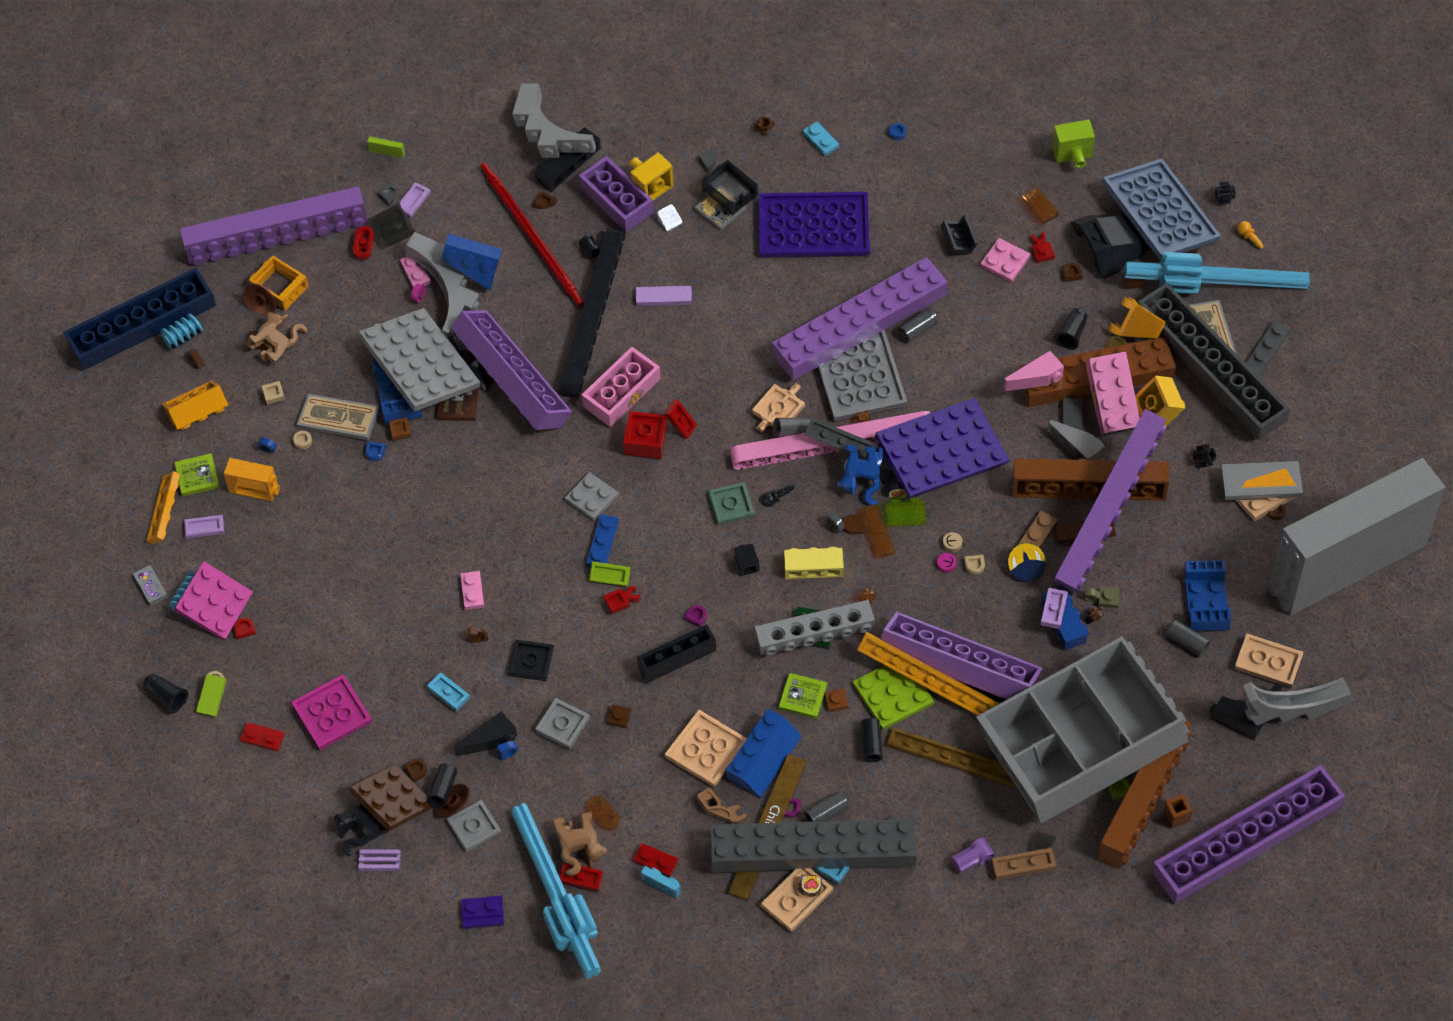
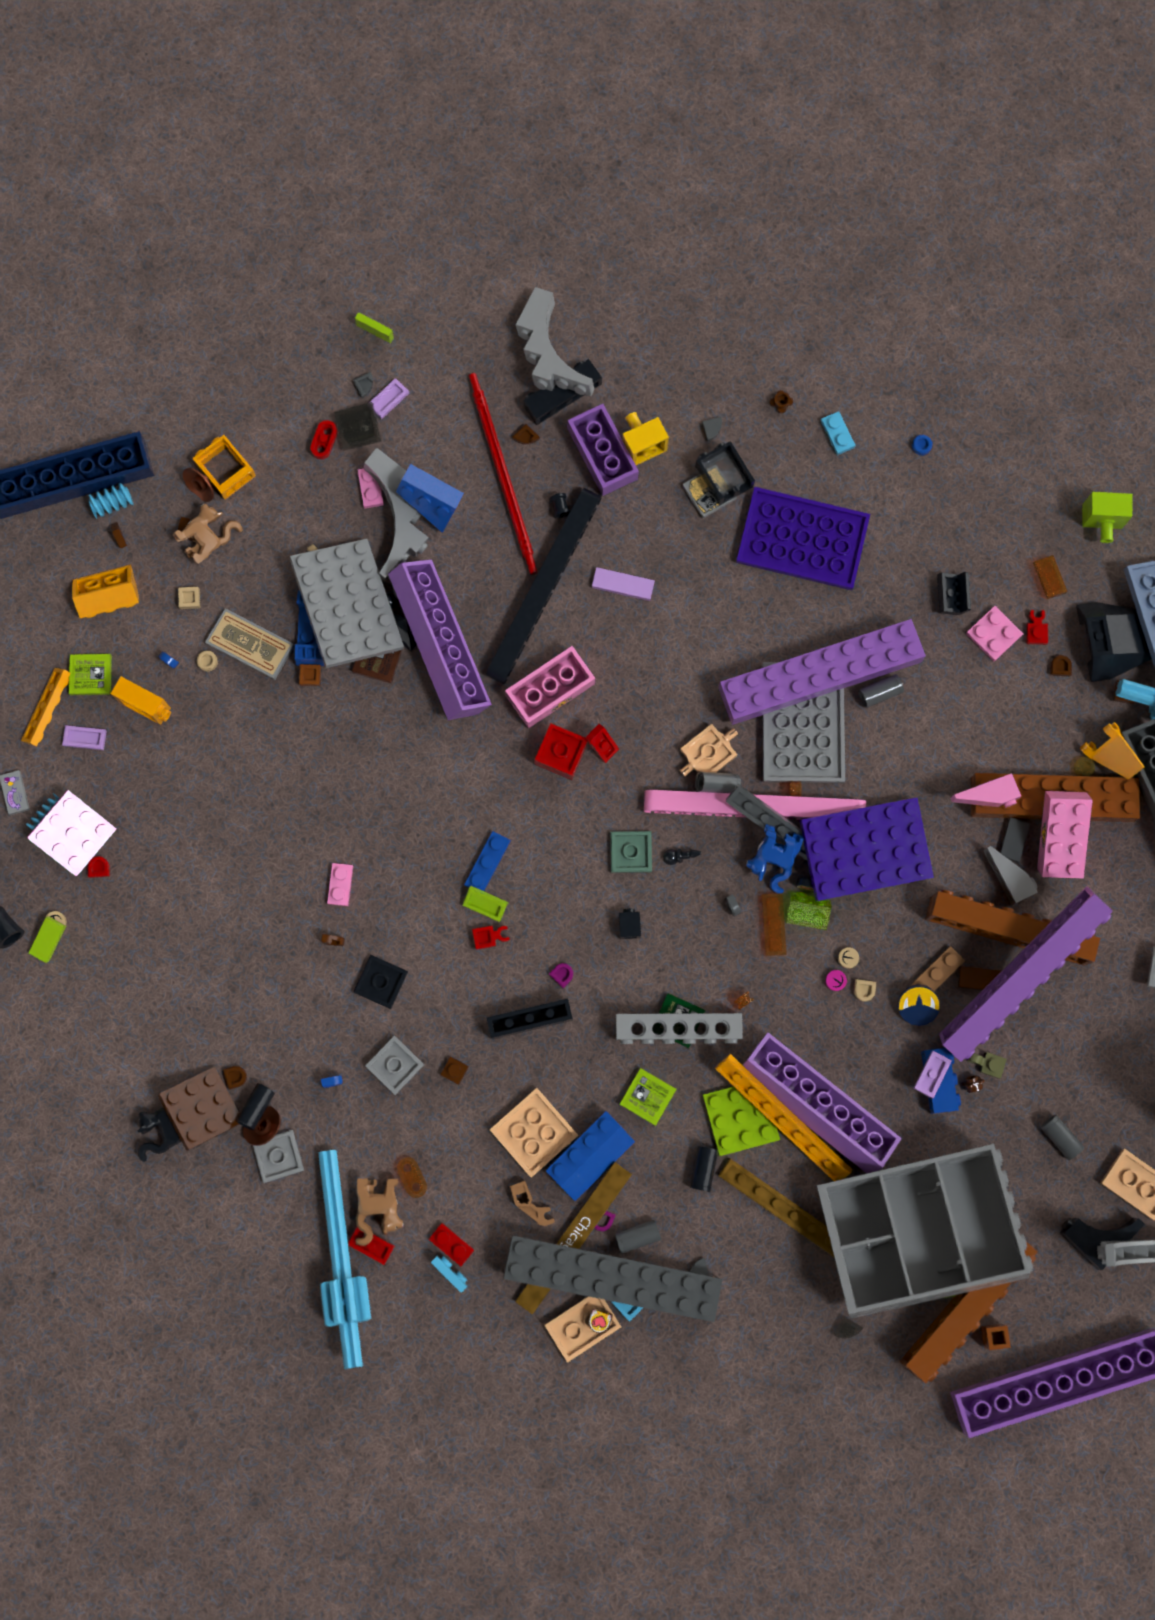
camera: 10 degrees right, 20 degrees up
(262, 737) = (89, 998): red plate -> none
(274, 226) = (233, 399): medium lavender brick -> none
(331, 712) = (164, 990): dark pink plate -> none
(375, 451) = (278, 693): blue tile -> none
(379, 867) = (157, 1165): lavender tile -> none
(418, 292) = (366, 516): dark pink tile -> none
(448, 691) = (287, 998): medium azure plate -> none
(482, 912) = (264, 1256): dark purple plate -> none
(487, 736) = (322, 1060): black slope -> none
(591, 496) = (489, 806): light grey plate -> none
(669, 217) = (652, 491): slope -> none
(813, 563) = (698, 946): light yellow brick -> none
(836, 700) = (680, 1111): dark orange plate -> none
(853, 524) = (751, 910): reddish brown tile -> none
(976, 854) = (777, 1326): medium lavender piece -> none
(1023, 863) = (822, 1350): medium nougat plate -> none
(1071, 330) = (1042, 738): black plant -> none
(1160, 398) = (1110, 856): yellow brick -> none
(1204, 455) = (1139, 927): black gear -> none
(1206, 595) = (1095, 1093): blue plate -> none

